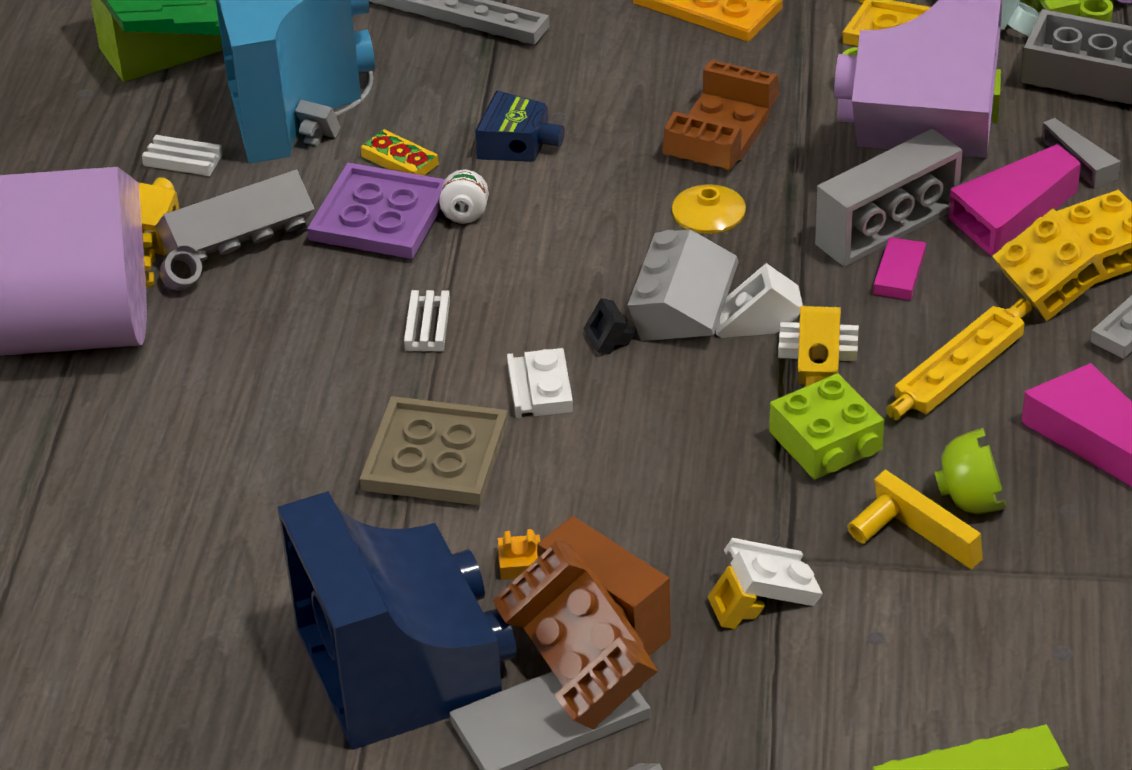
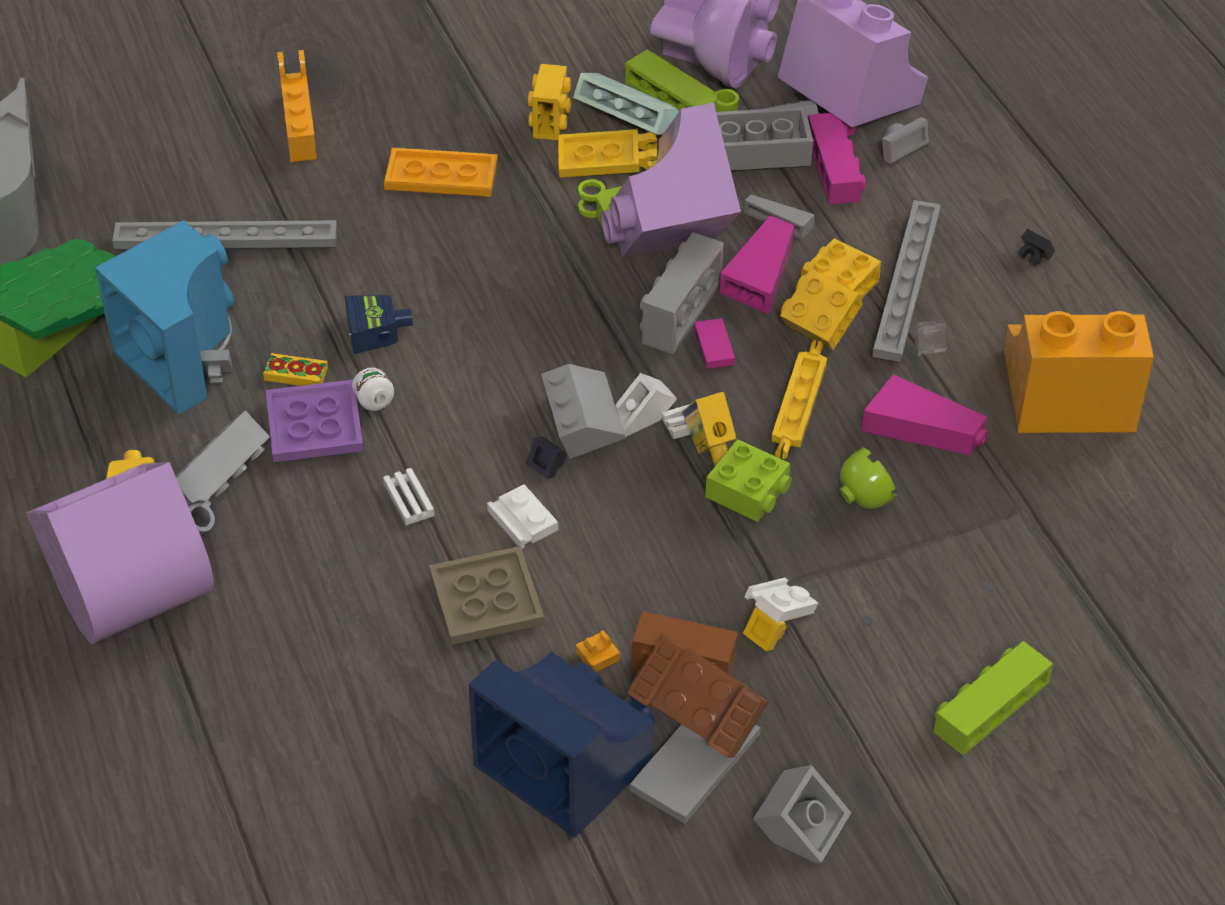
camera: 30 degrees left, 5 degrees up
(182, 155) = (123, 421): white tile -> none
(708, 209) = (550, 340): yellow dish -> none
(725, 116) = (518, 263): dark orange plate -> none
(922, 515) = (847, 522): yellow piece -> none

